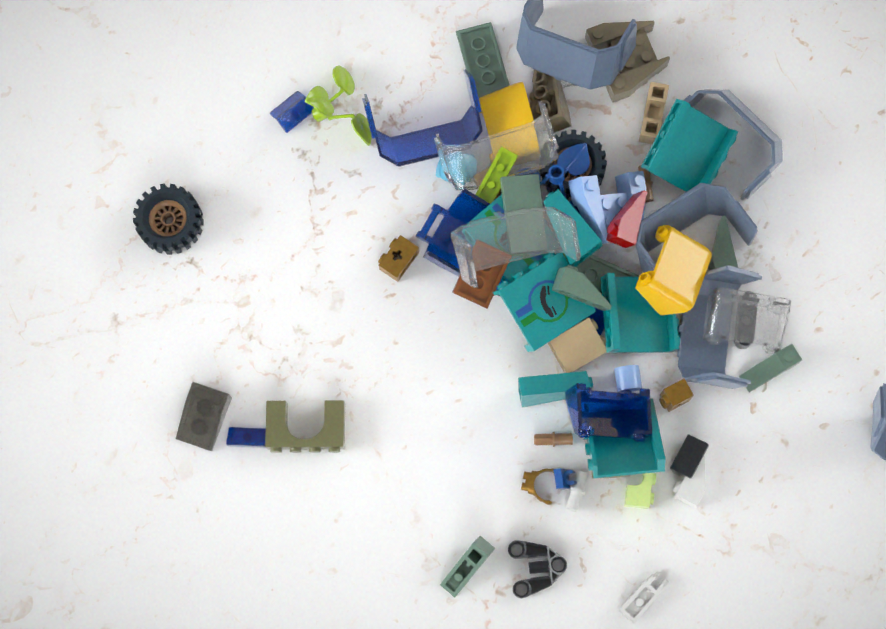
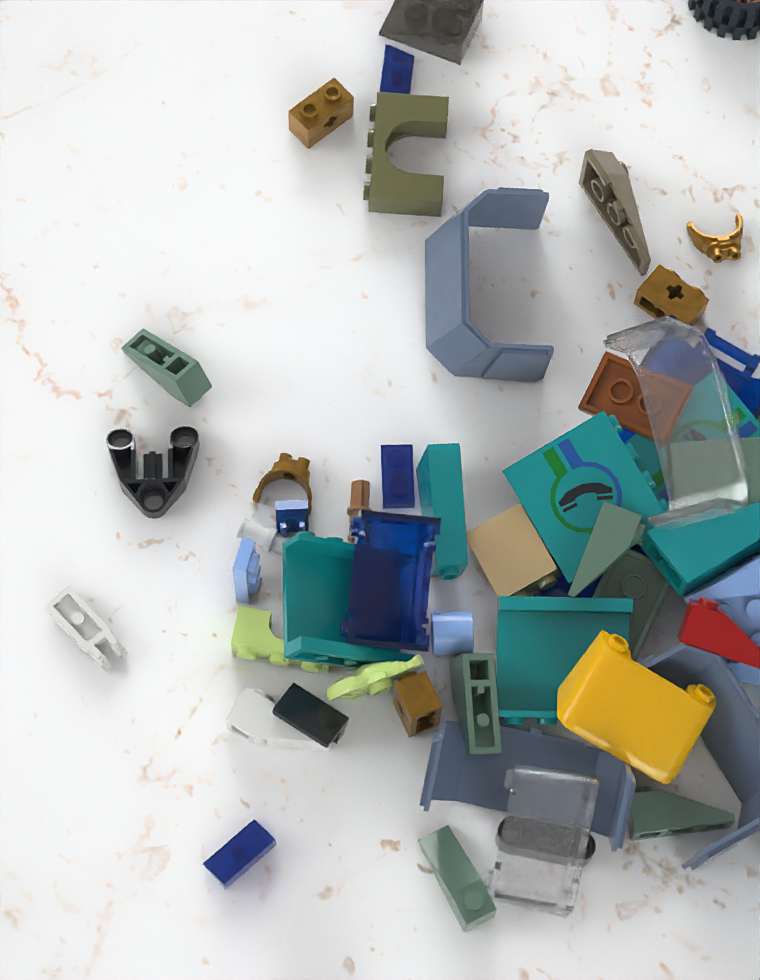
camera: 85 degrees right, 10 degrees down
(279, 483) = (321, 113): none -> pearl gold brick
(327, 295) = (610, 191): none -> dark tan wedge
(360, 230) = (718, 247): none -> pearl gold helmet
(402, 391) = (447, 291): none -> sand blue piece
(527, 418) = (397, 476): none -> clear blue plate
(608, 499) = (246, 571): none -> light blue plate
(667, 422) = (372, 679): none -> yellowish green animal
(671, 361) = (476, 701): none -> sand green slope
(769, 492) = (240, 854): none -> clear blue slope

